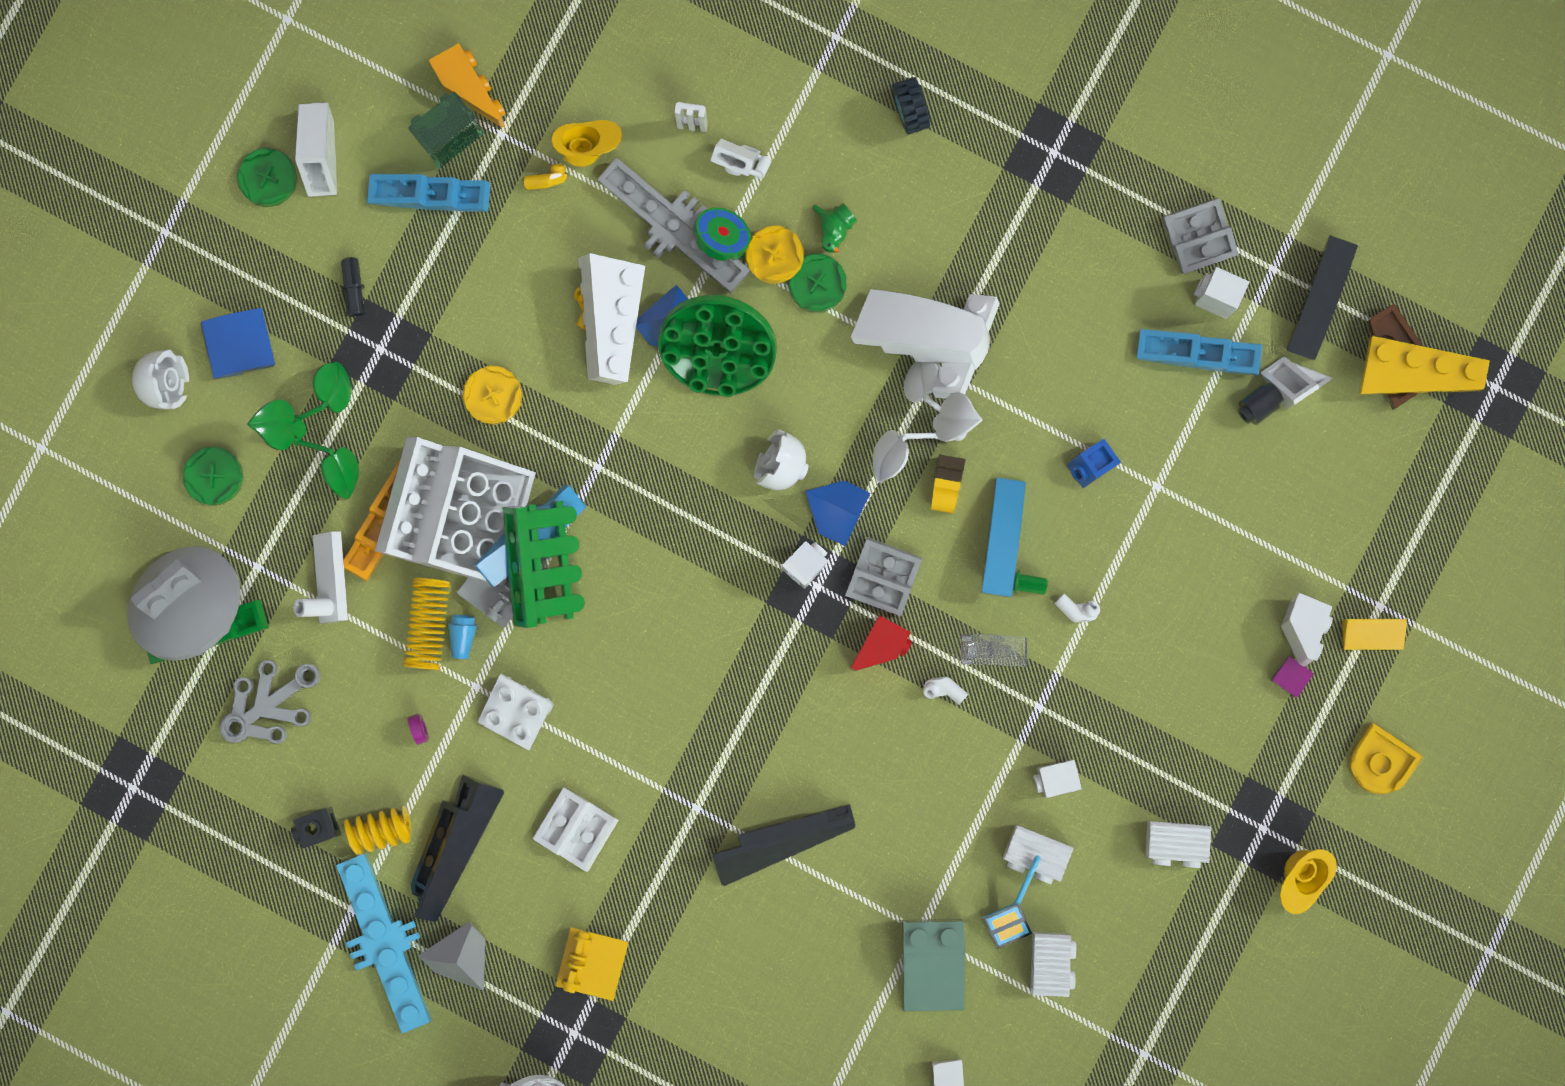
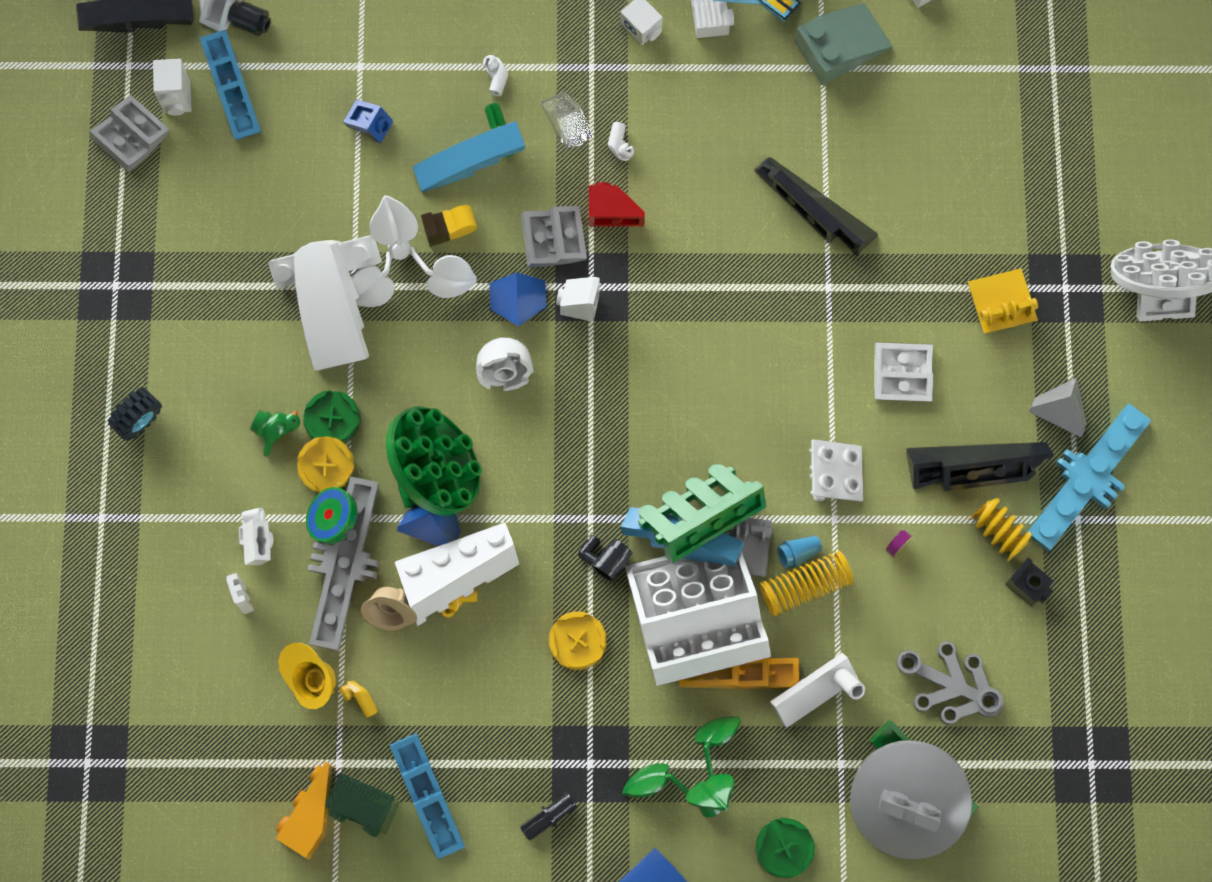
camera: 125 degrees left, 10 degrees down
(546, 462) = (610, 561): none -> black piece
(610, 241) = (388, 609): none -> tan piece

